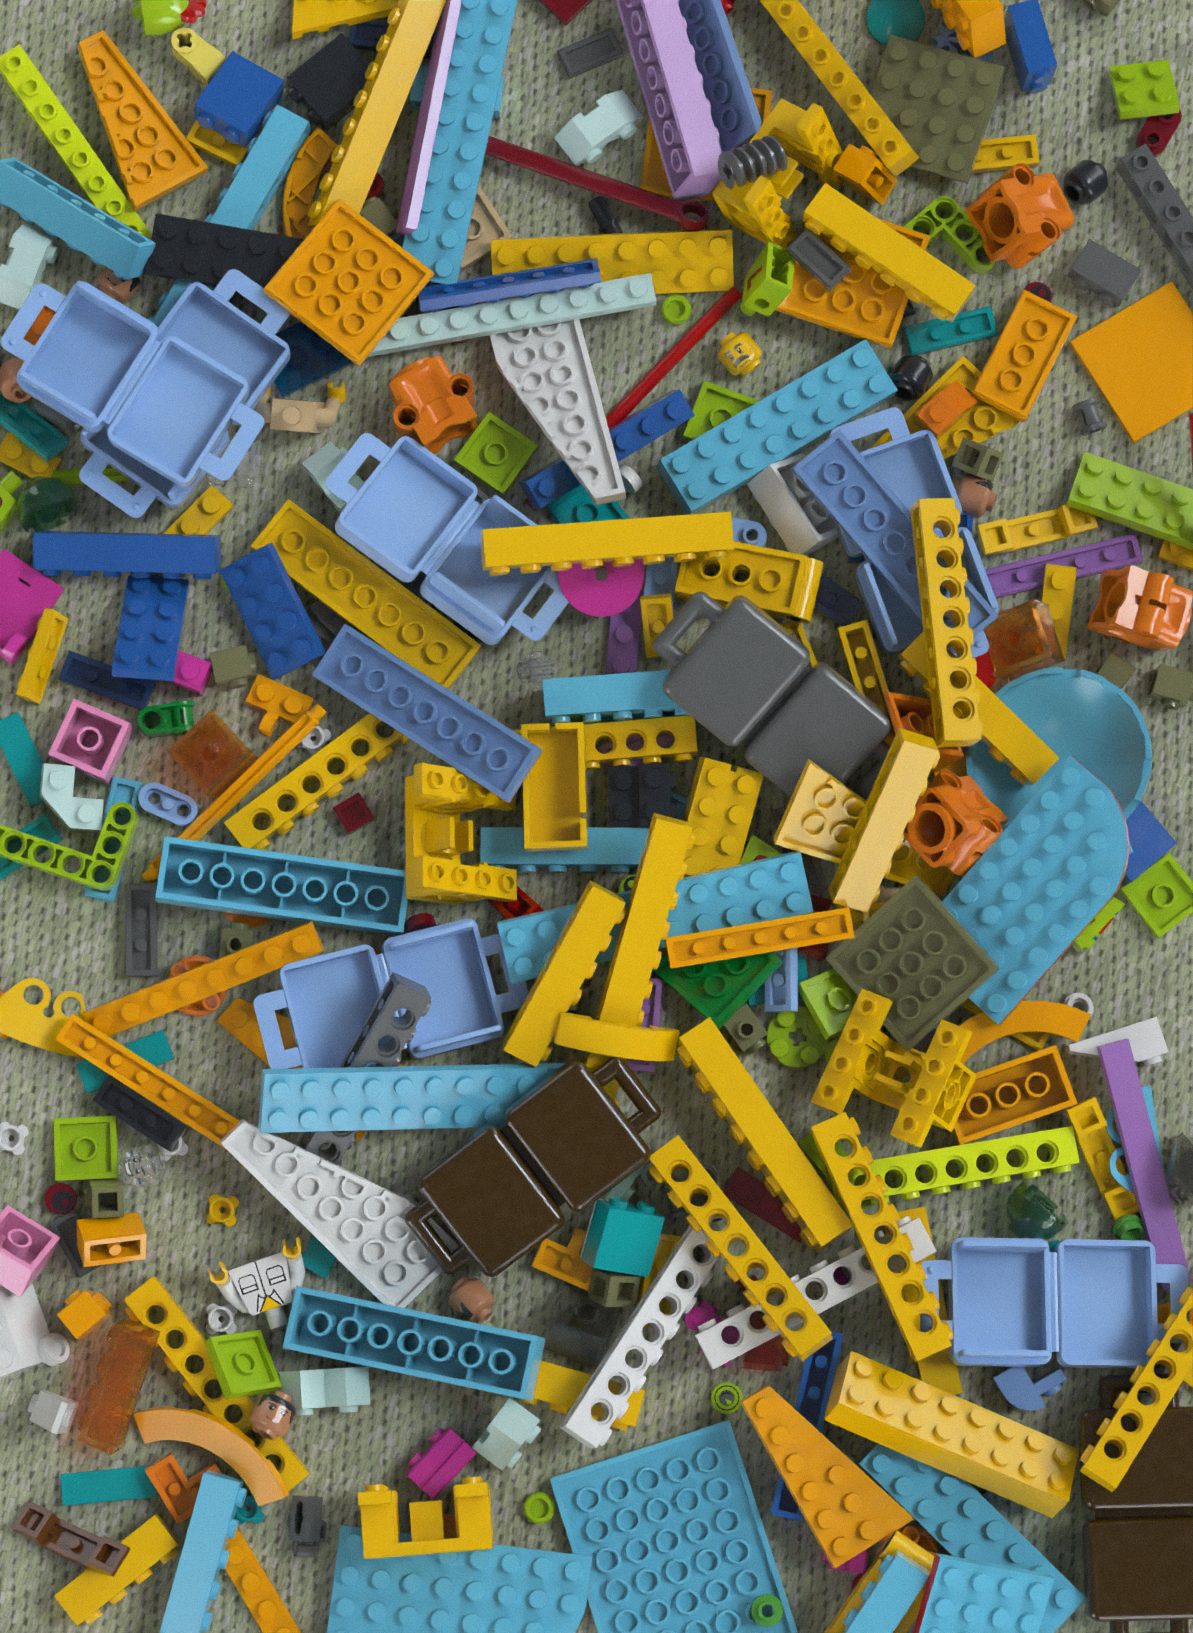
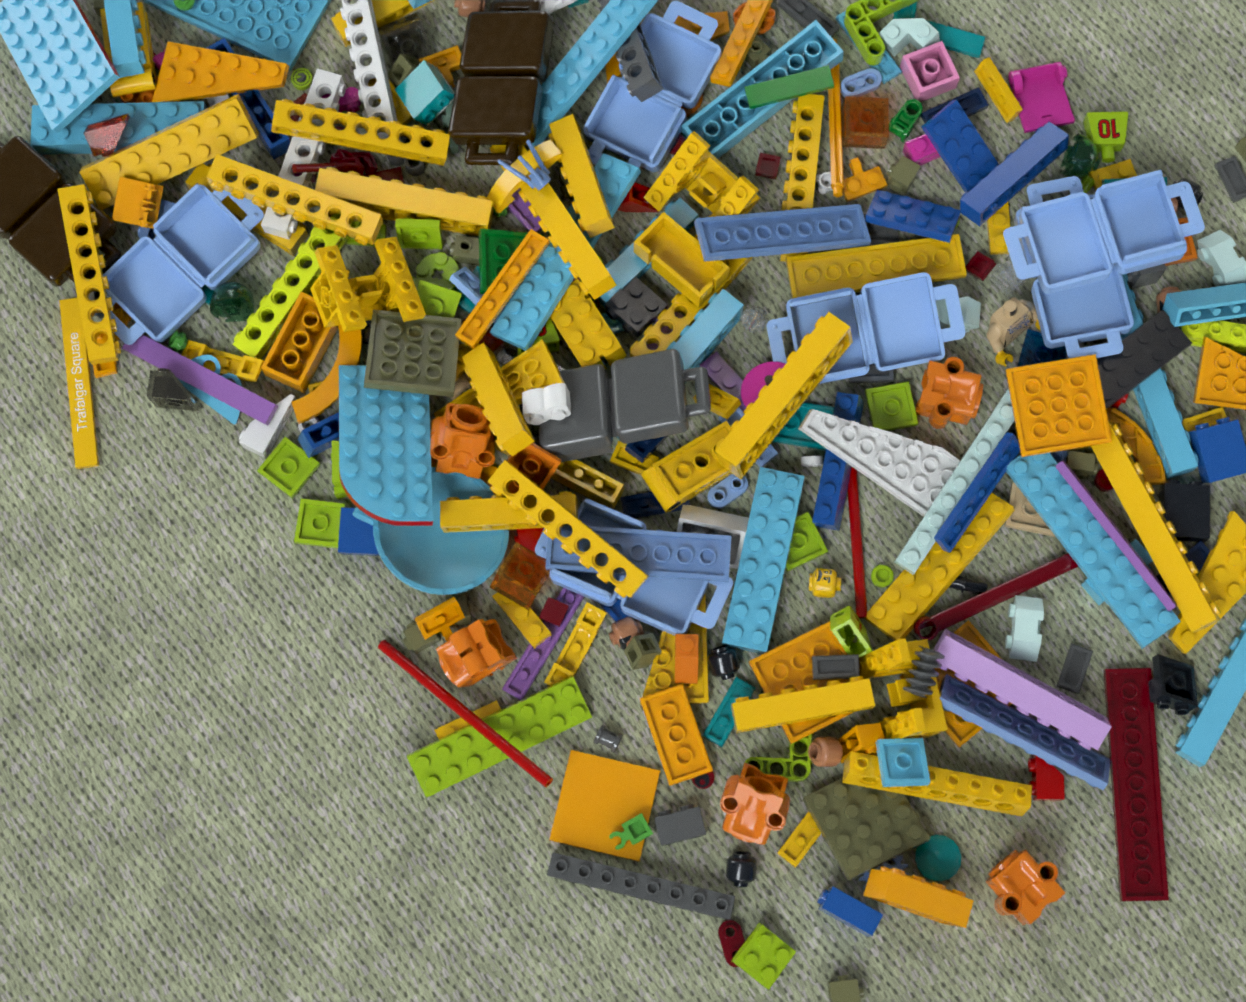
camera: 140 degrees right, 5 degrees down
(258, 854) = (789, 87): none -> green tile
(259, 501) = (980, 266): none -> dark red plate
(614, 1008) = (538, 177): none -> medium blue plant
(769, 1081) = (419, 233): none -> lime plate
(783, 1243) = (344, 162): none -> dark red piece
(844, 762) = (546, 403): none -> white brick
(856, 108) = (902, 762): none -> medium azure plate
(905, 199) = (825, 751): none -> nougat head
(1000, 1517) = (105, 135): none -> clear red slope
(1023, 581) = (554, 612): none -> dark red tile
(1037, 1409) = (137, 202): none -> light orange hinge
(1080, 975) = (320, 436): none -> blue brick
(1140, 983) = (288, 467): none -> lime plate
(1144, 674) = (439, 619): none -> light orange plate
(1151, 308) = (634, 830): none -> bright green plate

